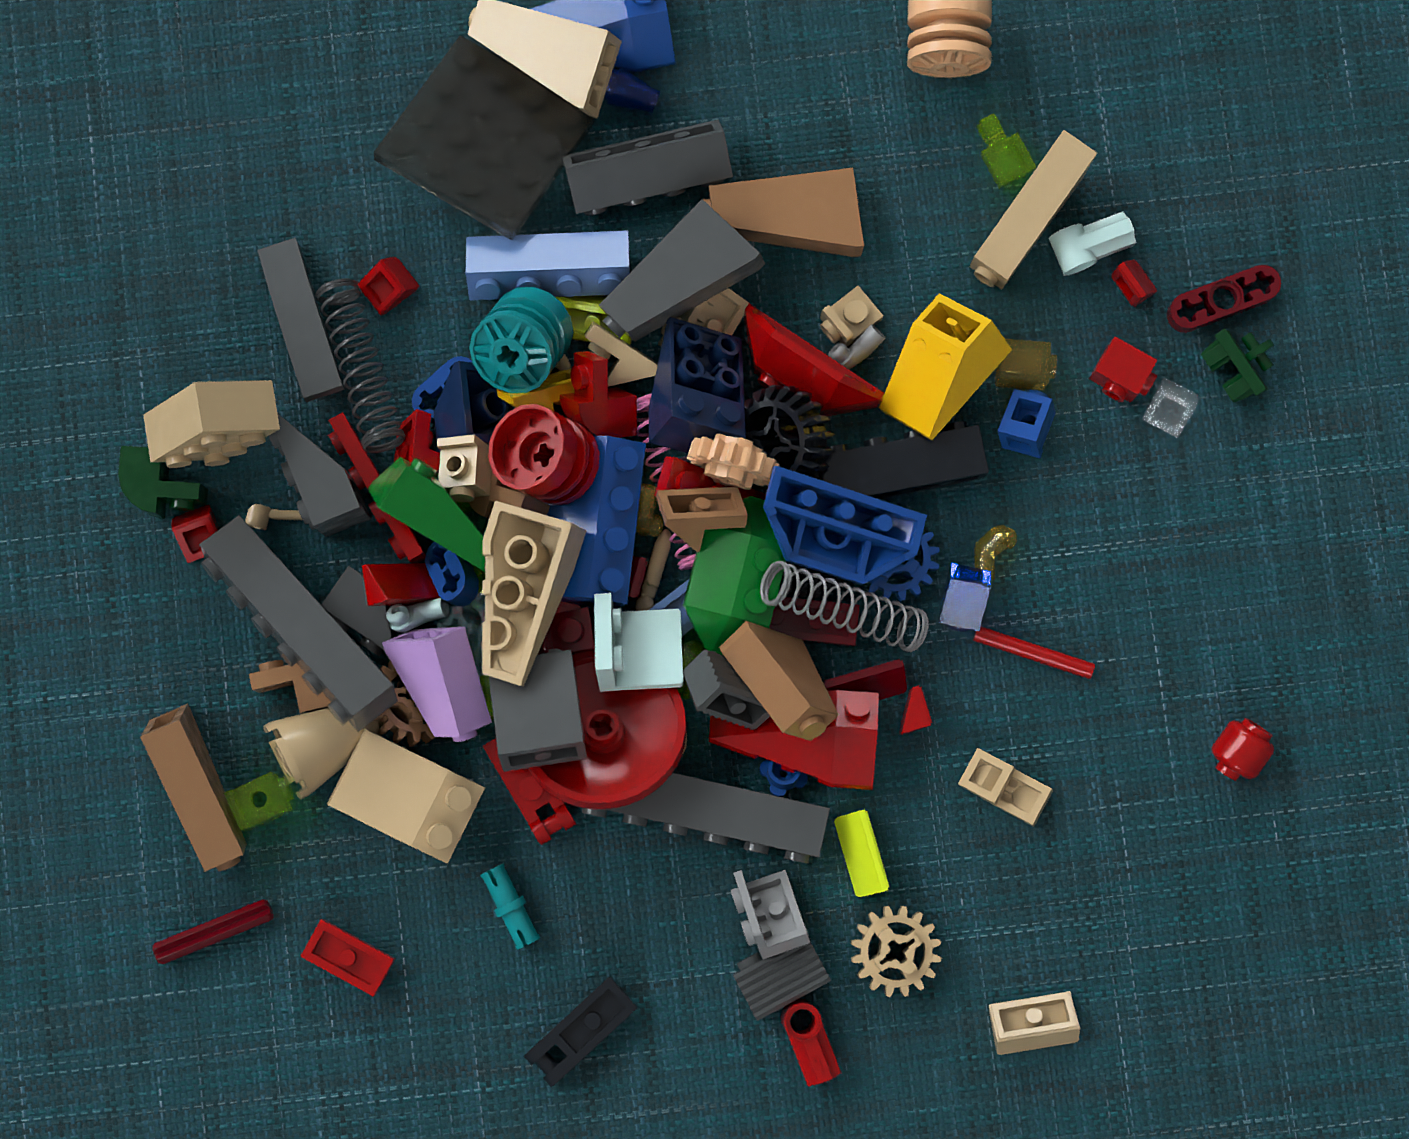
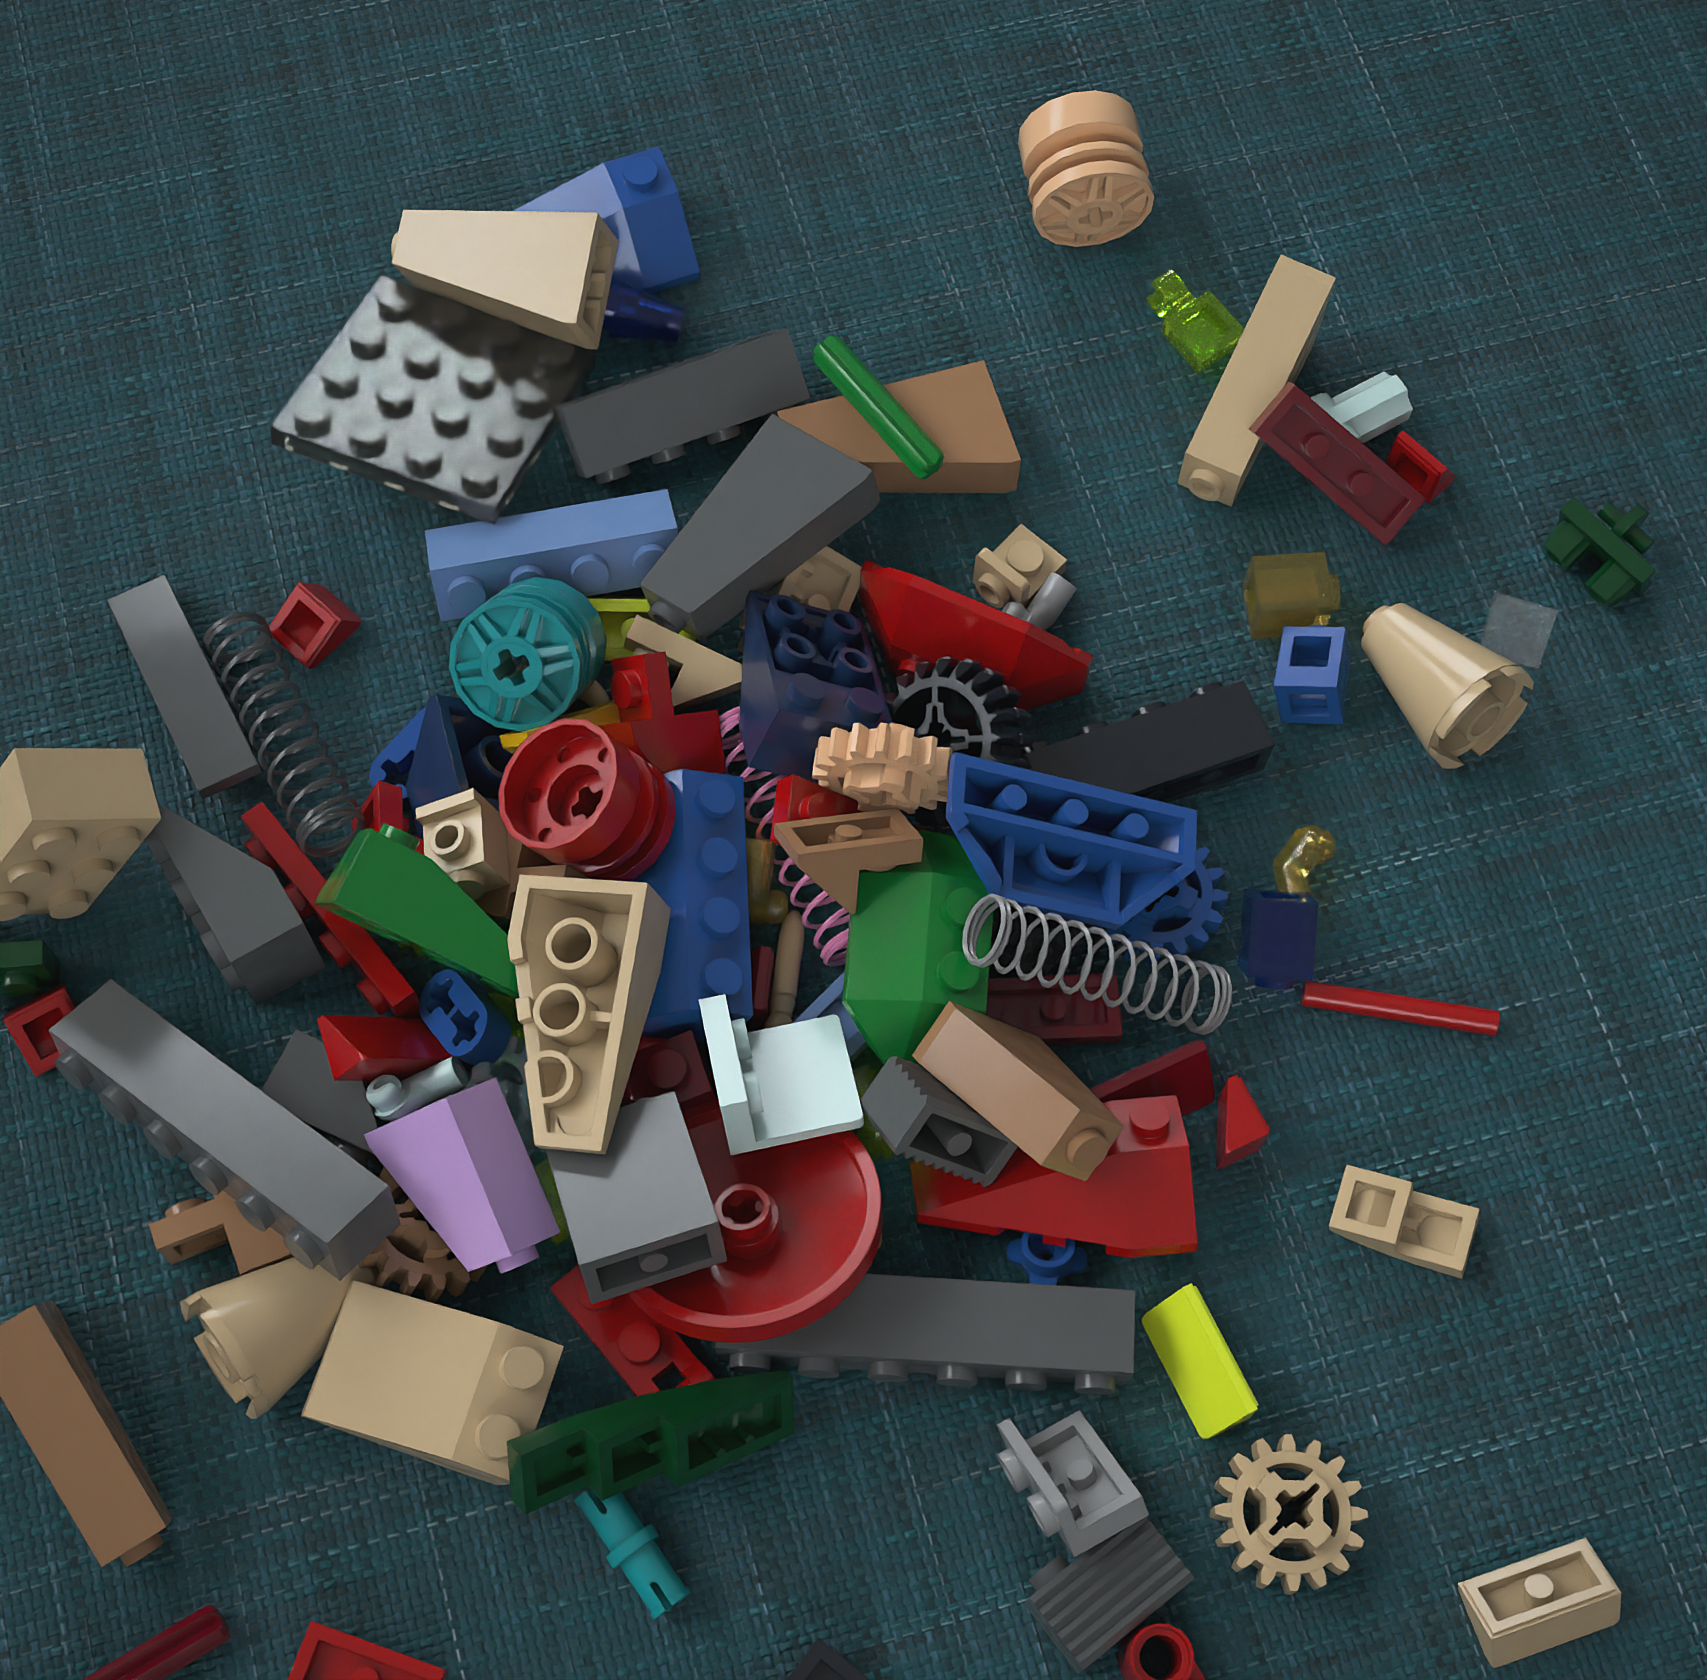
camera: 10 degrees left, 15 degrees down
(247, 813) = (180, 1464): clear neon green brick -> none
(259, 515) = (147, 981): tan hand -> none
(537, 846) = (665, 1432): none -> dark green slope
(775, 195) = (878, 407): none -> green axle
(942, 365) = (1172, 603): yellow slope -> none
(1073, 280) = (1337, 463): none -> dark red plate
(1108, 442) = (1444, 682): none -> tan cone
(1124, 371) = (1440, 579): red brick -> none
(1246, 278) = (1565, 448): dark red beam -> none

